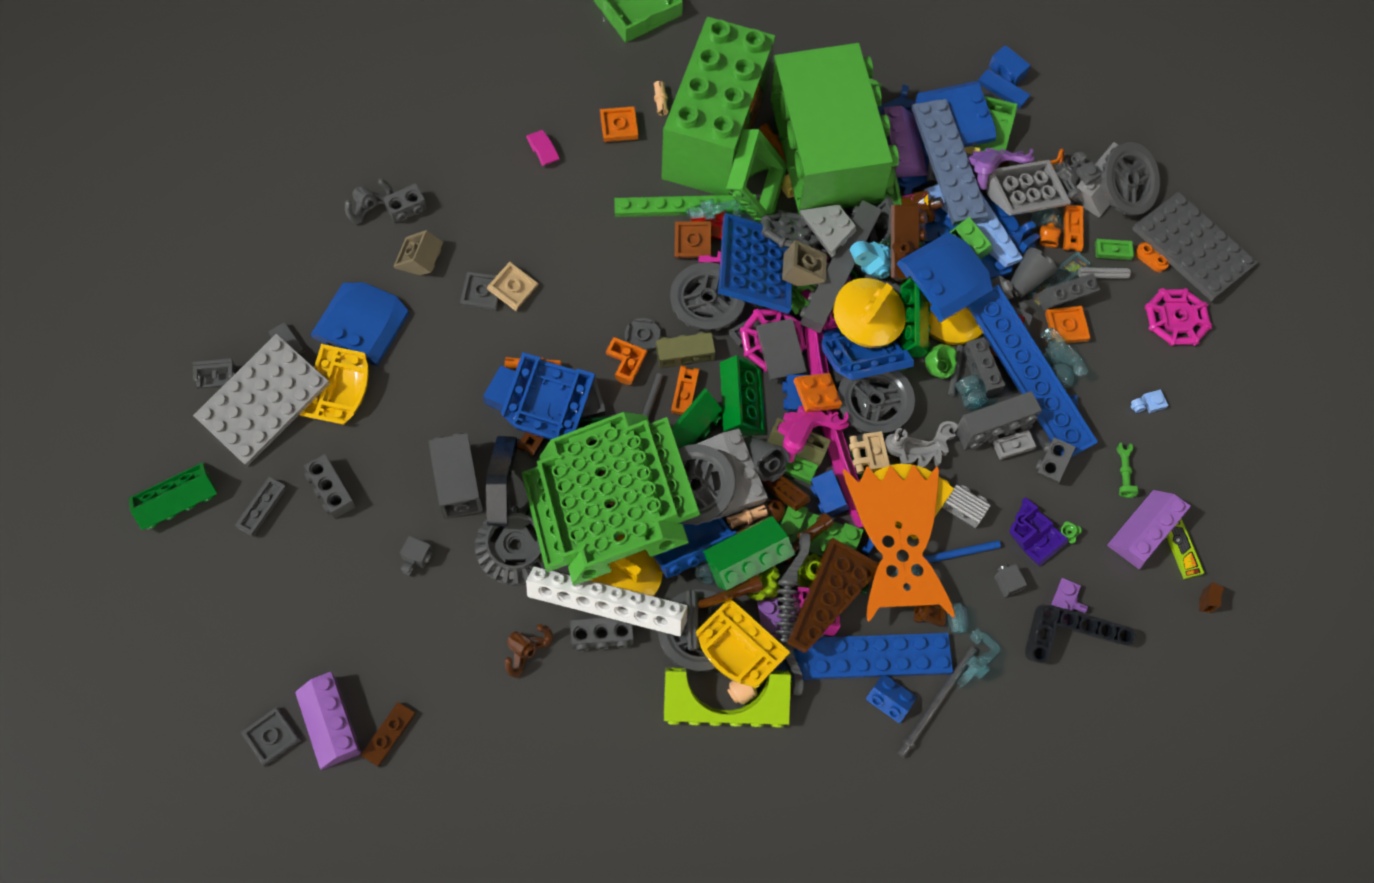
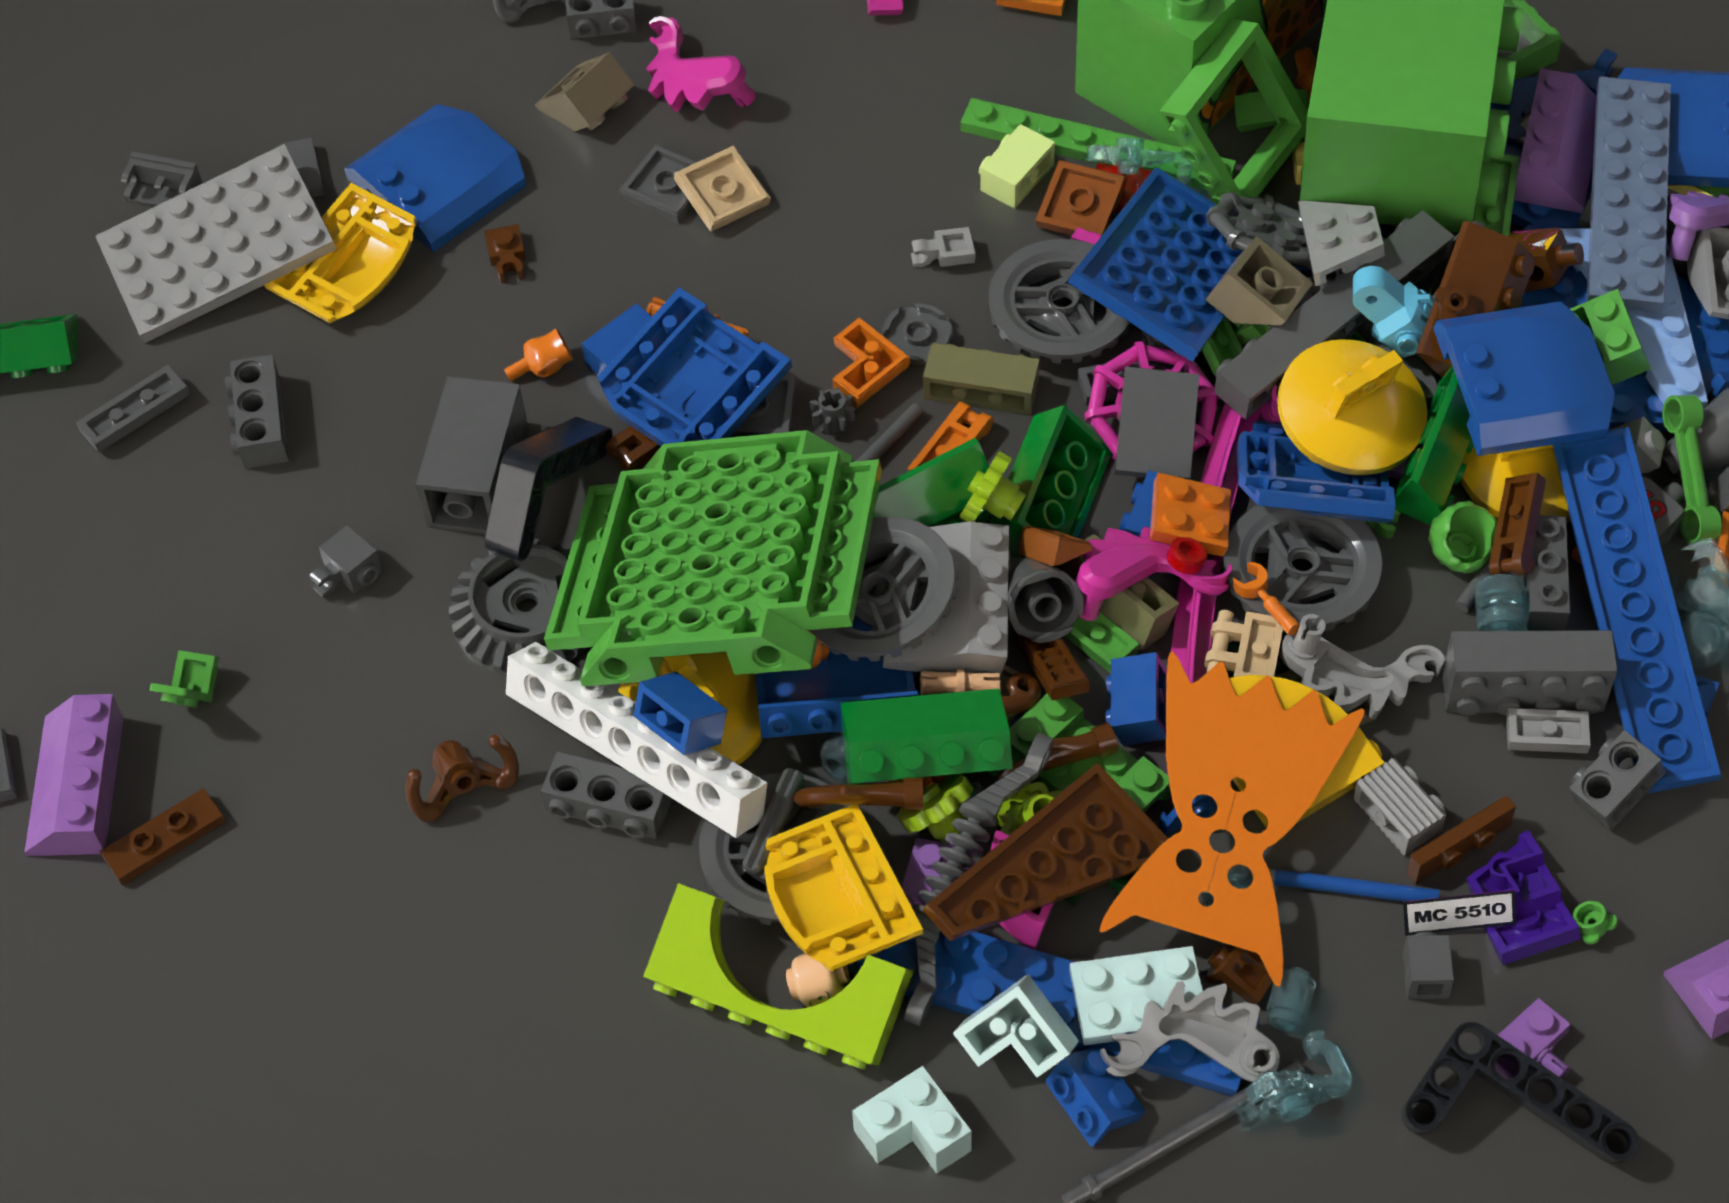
camera: 30 degrees right, 10 degrees down
(365, 647) = (192, 680): none -> bright green bracket
(416, 353) = (506, 250): none -> reddish brown plate
(463, 408) = (542, 356): none -> orange piece
(471, 229) = (692, 77): none -> dark pink animal
(618, 392) = (832, 410): none -> dark grey gear
(631, 585) = (680, 713): none -> blue brick
(640, 283) = (948, 246): none -> light grey plate
(653, 229) = (1017, 165): none -> yellowish green brick
(725, 414) = (993, 492): none -> lime plant
(763, 432) = (1051, 545): none -> dark orange slope
(822, 739) = (913, 1112): none -> light aqua brick
(826, 415) = (1186, 555): none -> red tile
(845, 678) = (1022, 1019): none -> light aqua brick
(873, 426) = (1258, 588): none -> orange piece
(893, 643) = (1115, 989): none -> light aqua plate
(931, 648) = (1219, 1033): none -> light grey animal
(966, 349) = (1517, 525): none -> reddish brown plate
(1004, 507) = (1453, 845): none -> reddish brown plate
(1014, 549) = (1460, 912): none -> sticker
(1028, 293) = (1684, 417): none -> bright green piece

